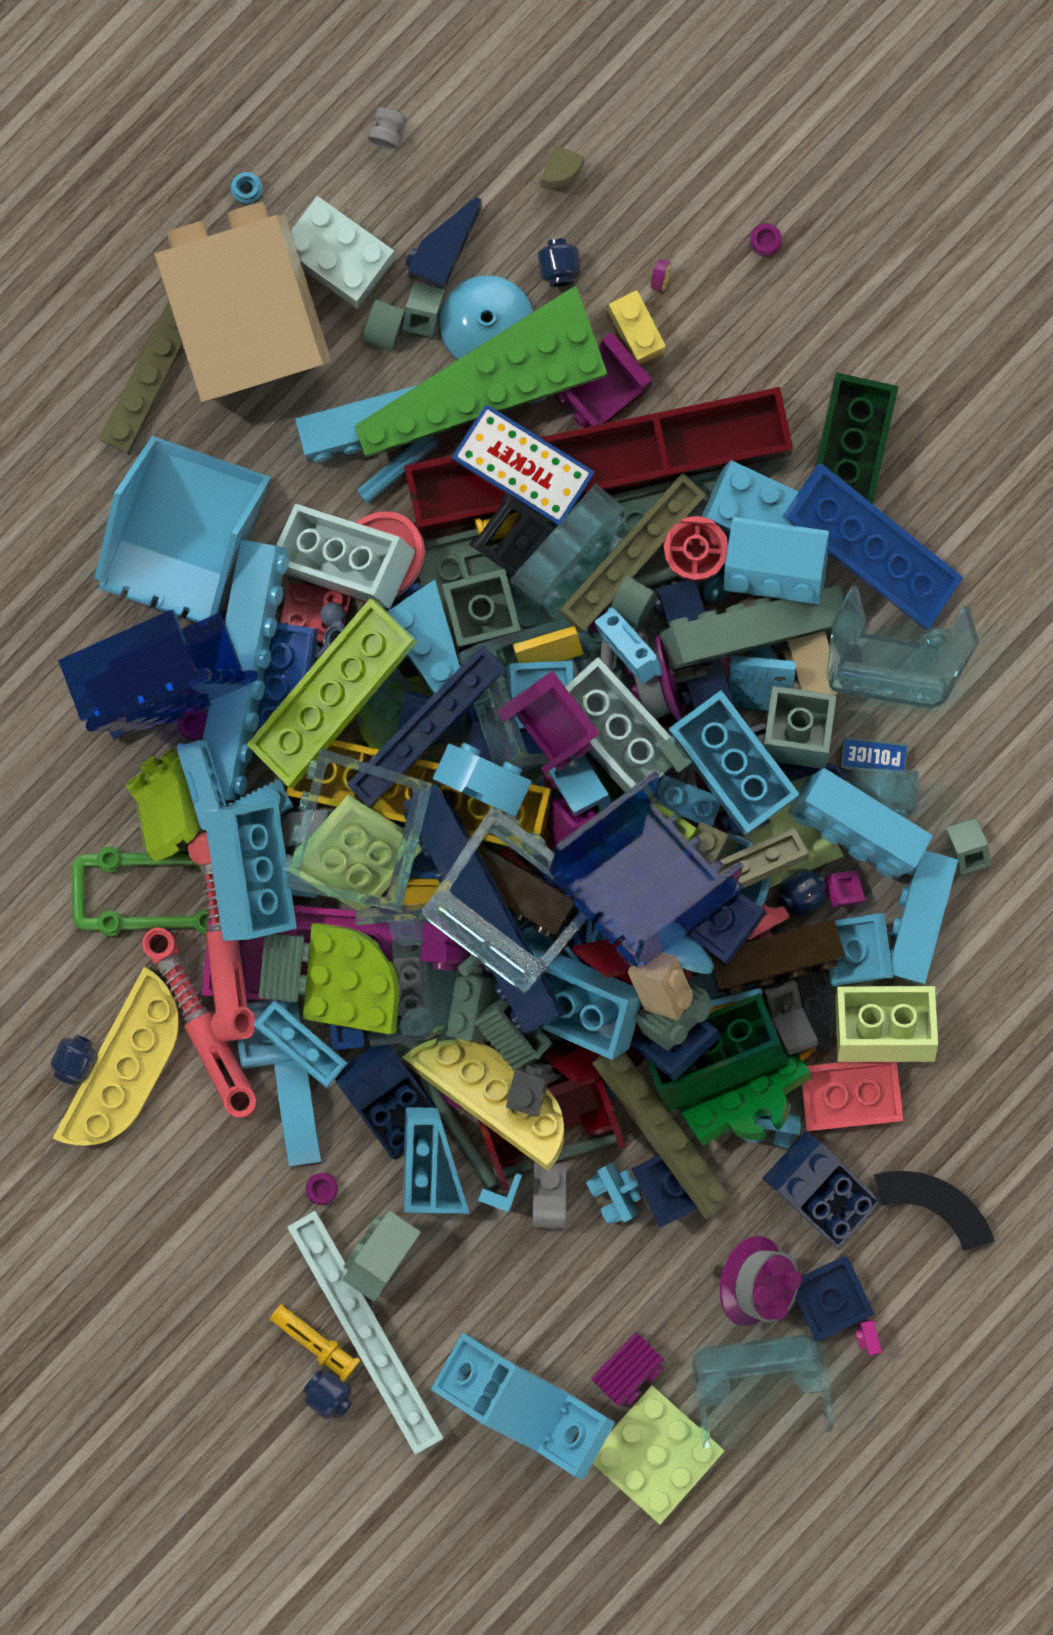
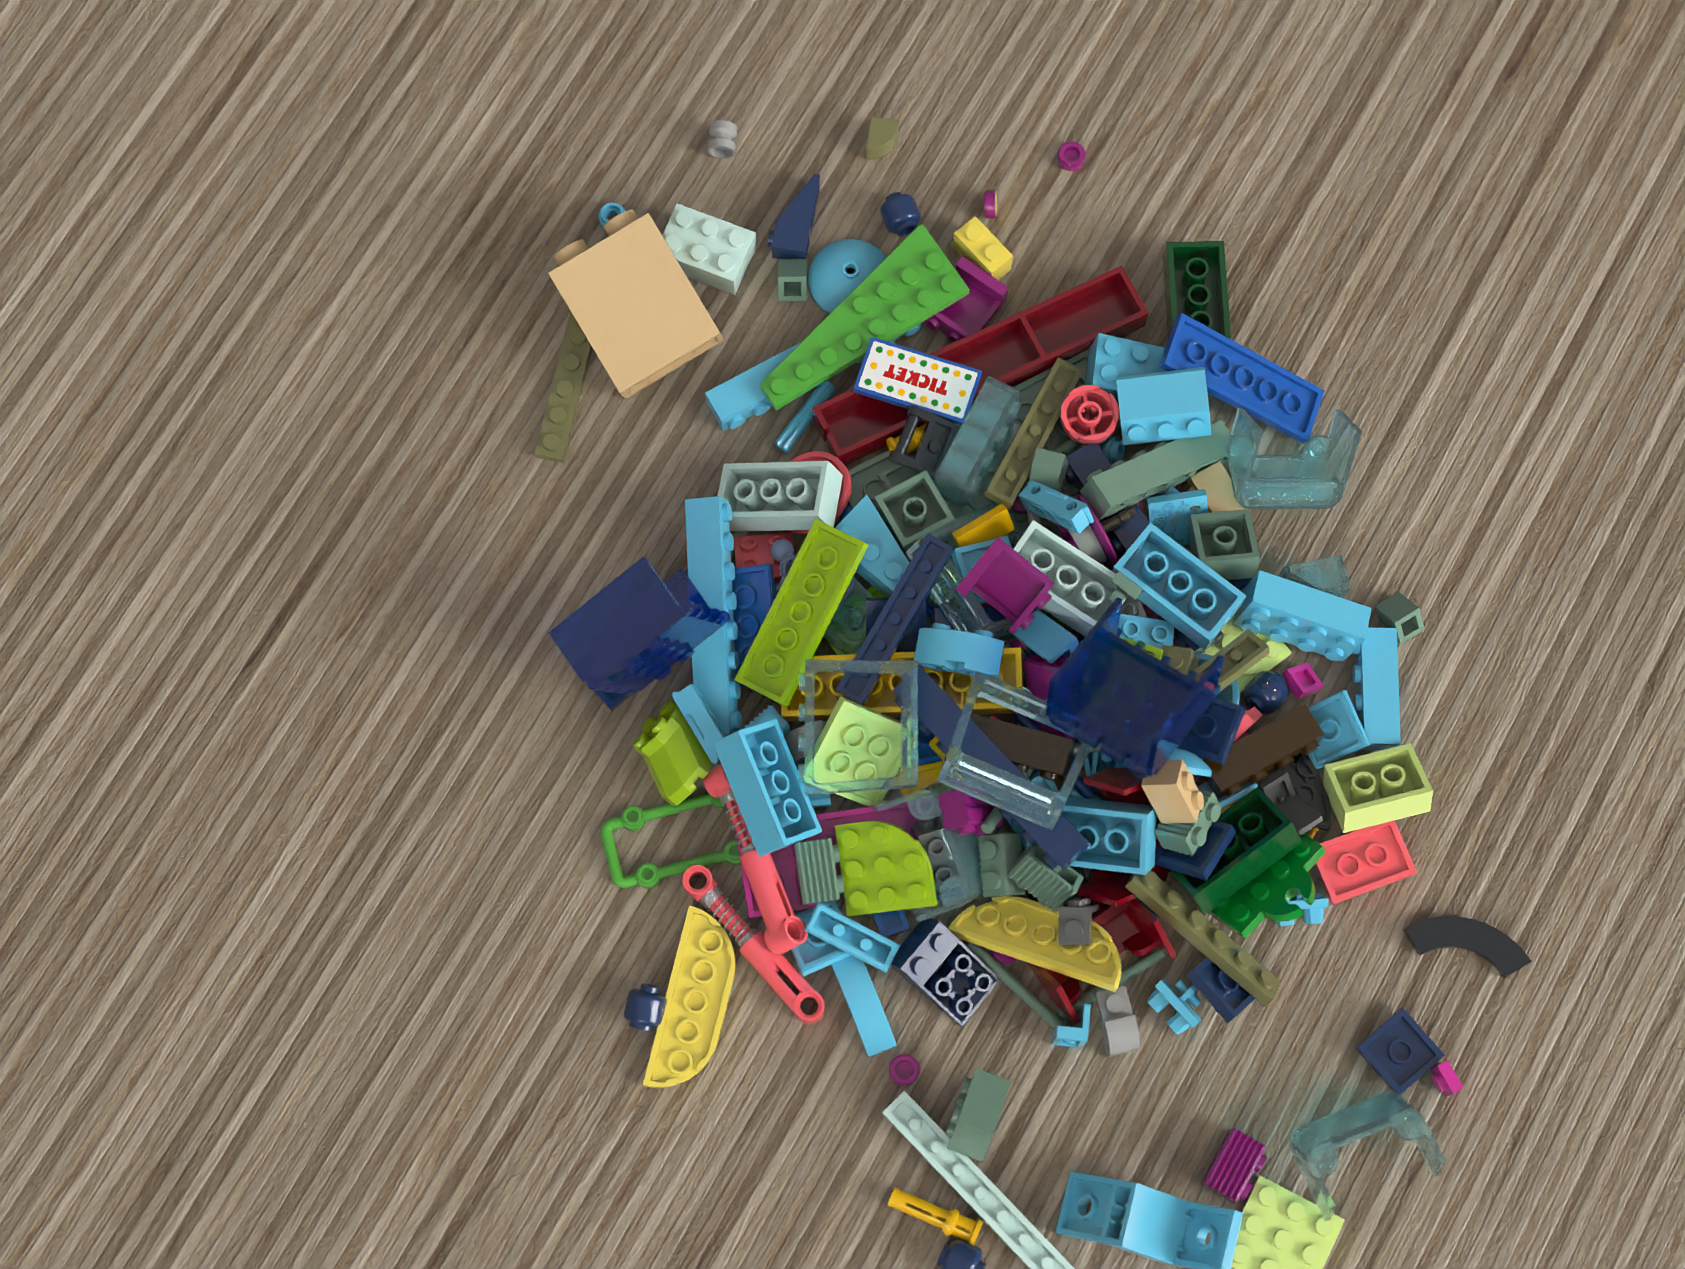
camera: 15 degrees left, 10 degrees down
(179, 529) = (624, 507): medium azure windscreen -> none
(192, 725) = (679, 678): magenta tile -> none
(383, 325) = (762, 300): sand green brick -> none
(429, 1170) = (999, 1021): medium azure wedge -> none
(757, 1282) = (1332, 1051): magenta piece -> none
(821, 1189) = (1361, 953): dark blue slope -> none
(872, 754) = (1276, 558): blue tile -> none

